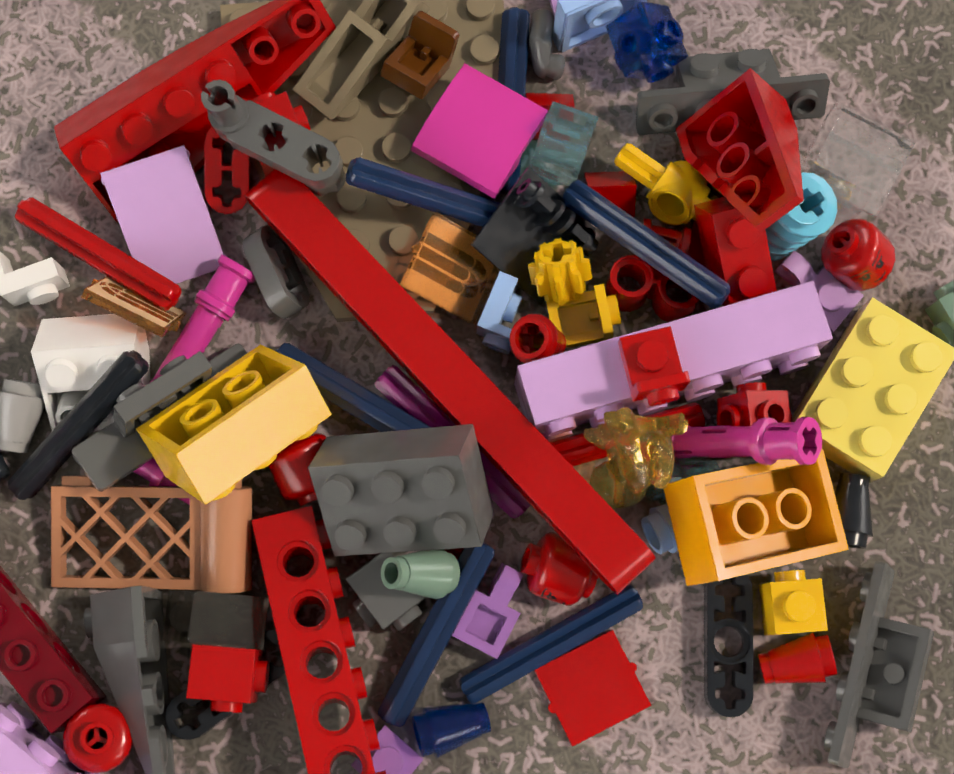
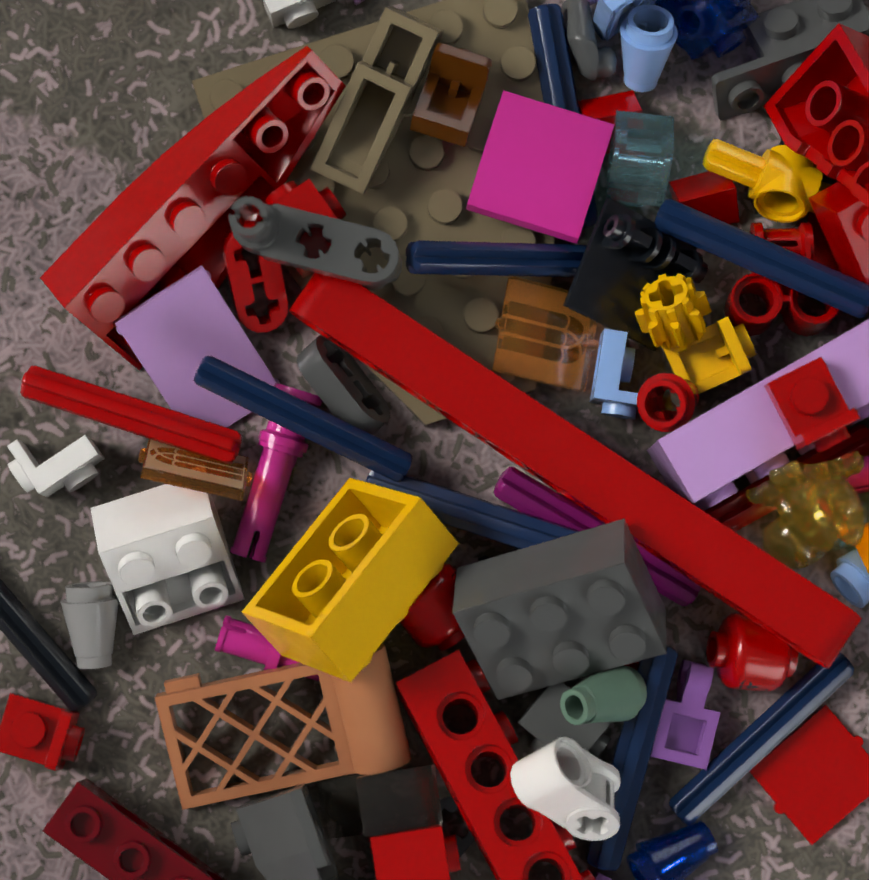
camera: 15 degrees left, 5 degrees up
(77, 425) = (169, 621): black axle -> none
(119, 447) = (224, 634): dark grey bracket -> none
(231, 284) = (302, 418): none -> dark blue axle
(372, 640) = (569, 788): none -> white piece
(590, 56) = (646, 44): none -> light blue cone

